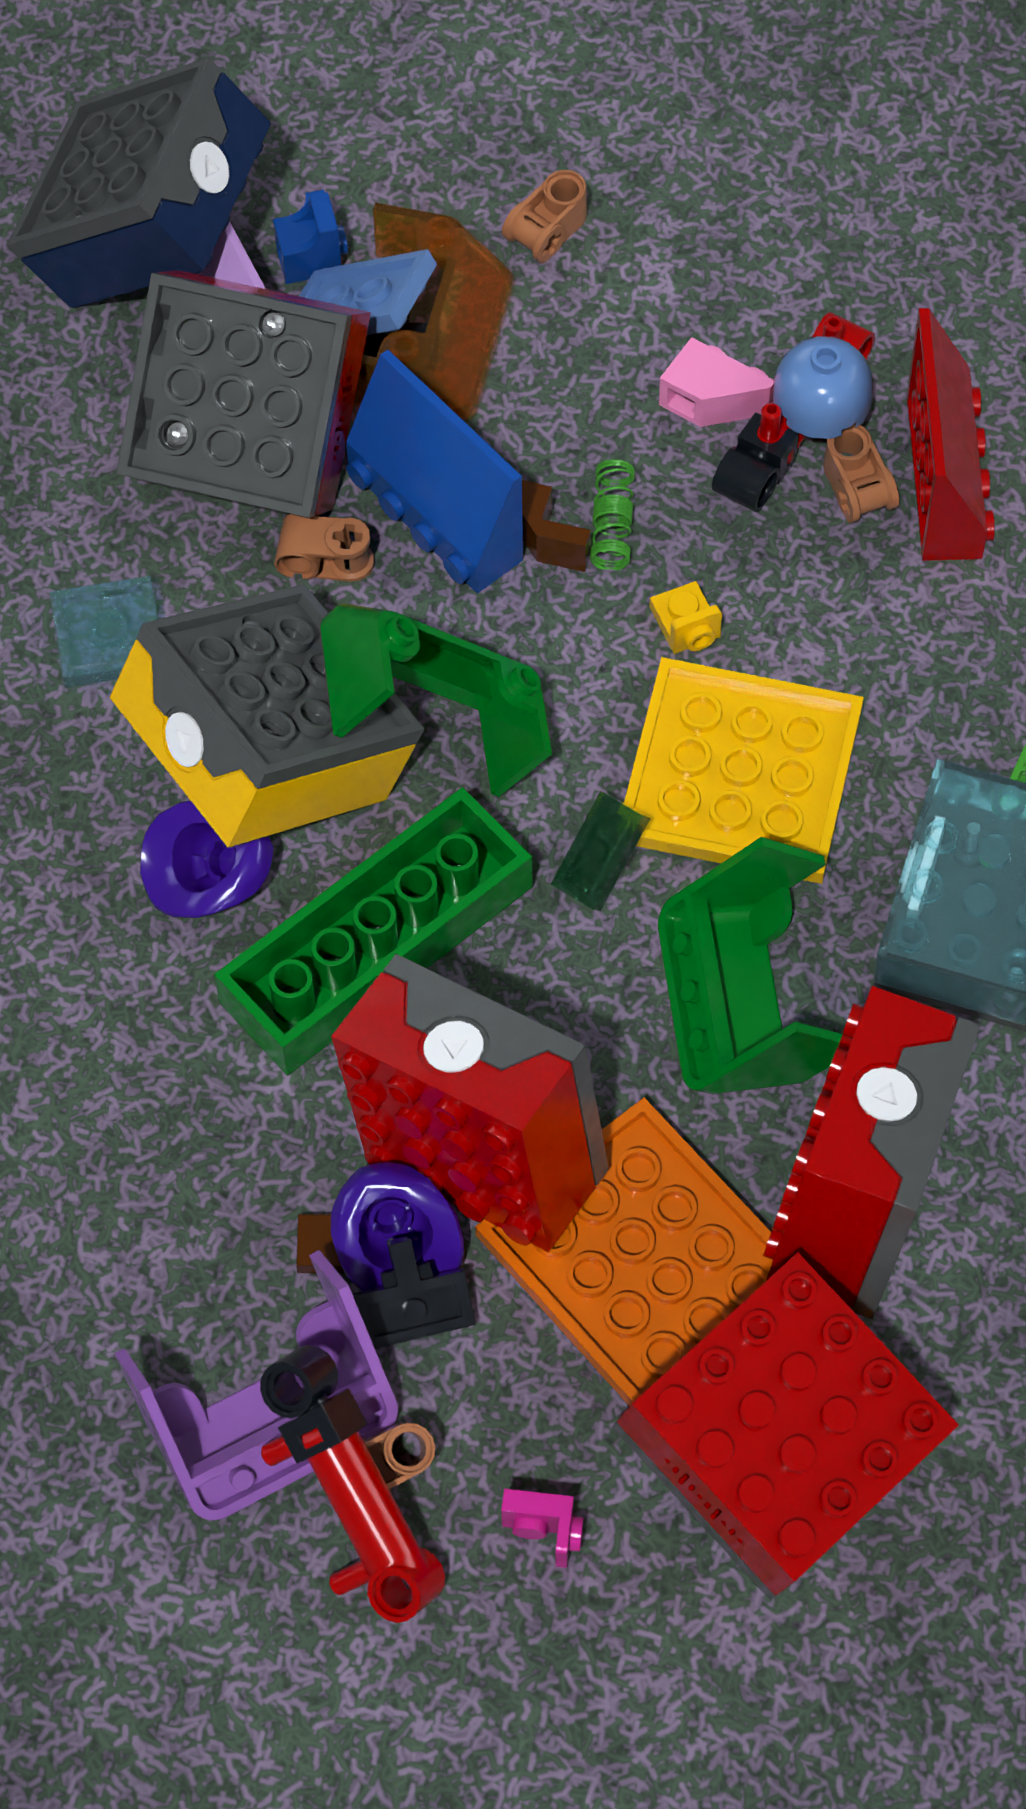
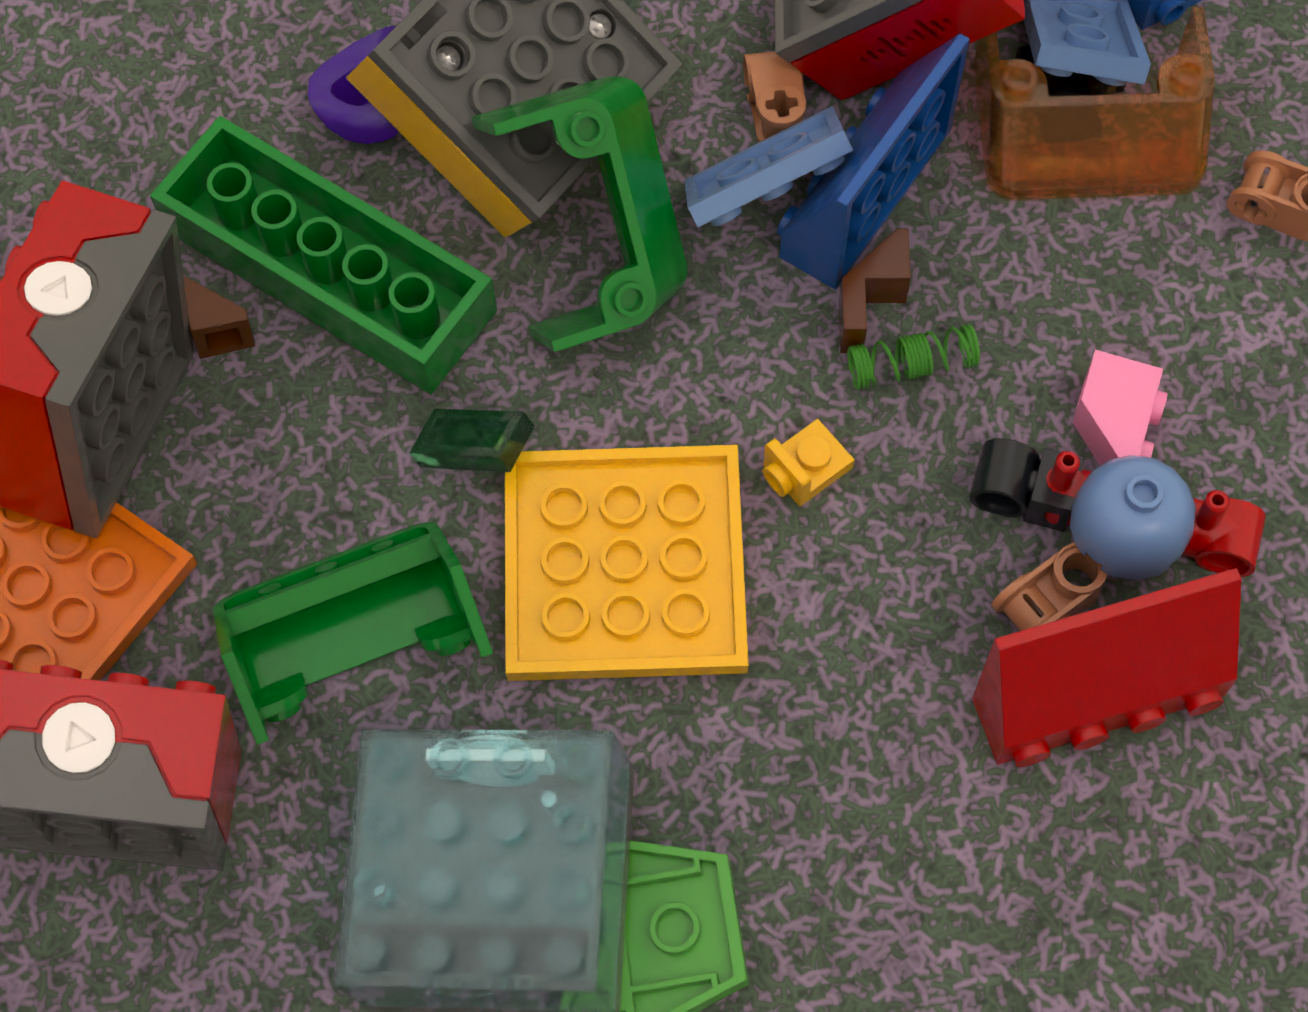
camera: 75 degrees right, 5 degrees up
(416, 549) = (767, 168): none -> medium blue plate

